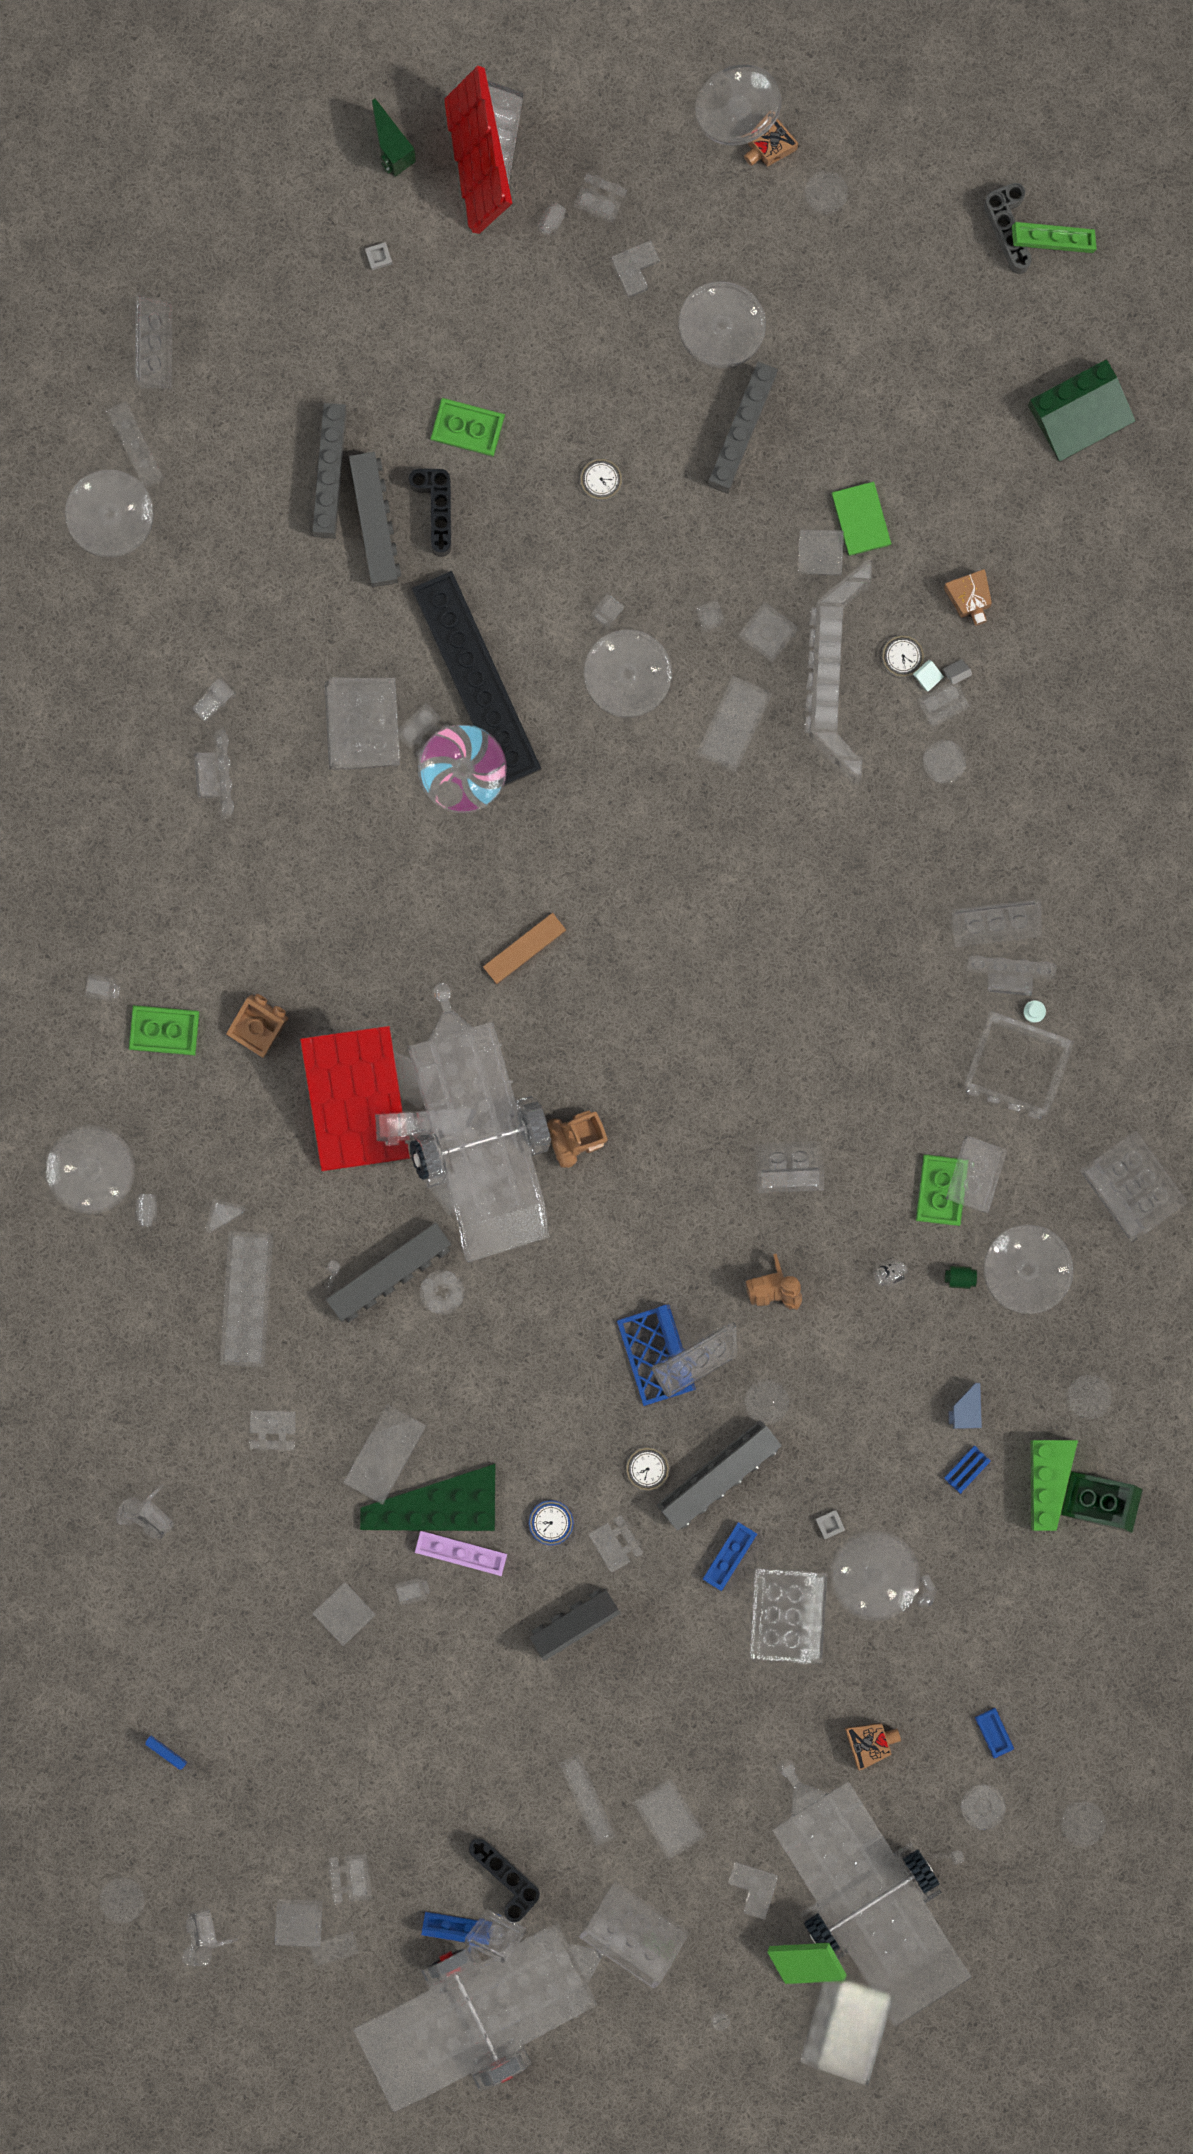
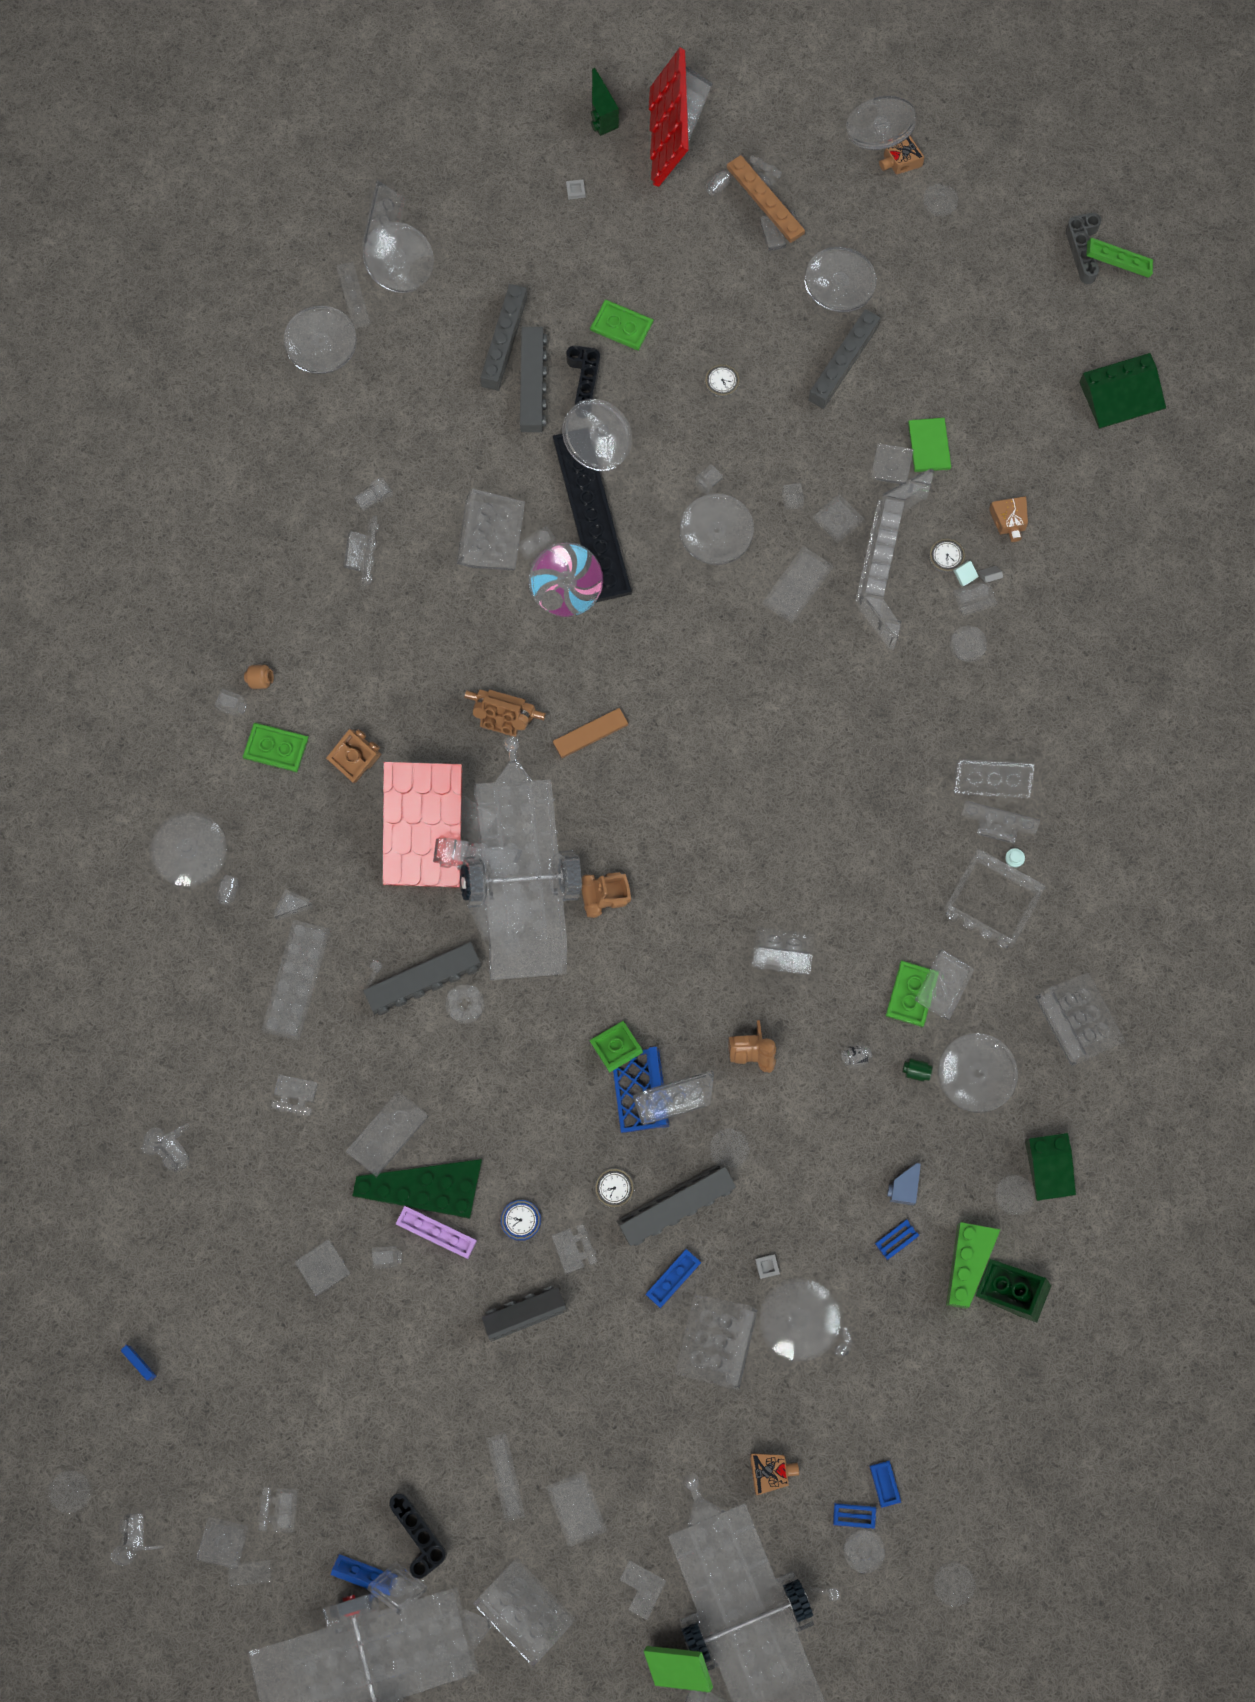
camera: 15 degrees right, 10 degrees down
(127, 950) = (259, 676): none -> medium nougat head
(181, 389) = (398, 257): none -> clear dish
(419, 943) = (502, 711): none -> medium nougat piece
(465, 579) = (597, 434): none -> clear dish
(613, 232) = (765, 199): none -> medium nougat plate
(621, 1311) = (616, 1046): none -> bright green plate
(947, 1773) = (872, 1517): none -> blue tile
(1124, 1359) = (1051, 1166): none -> dark green slope

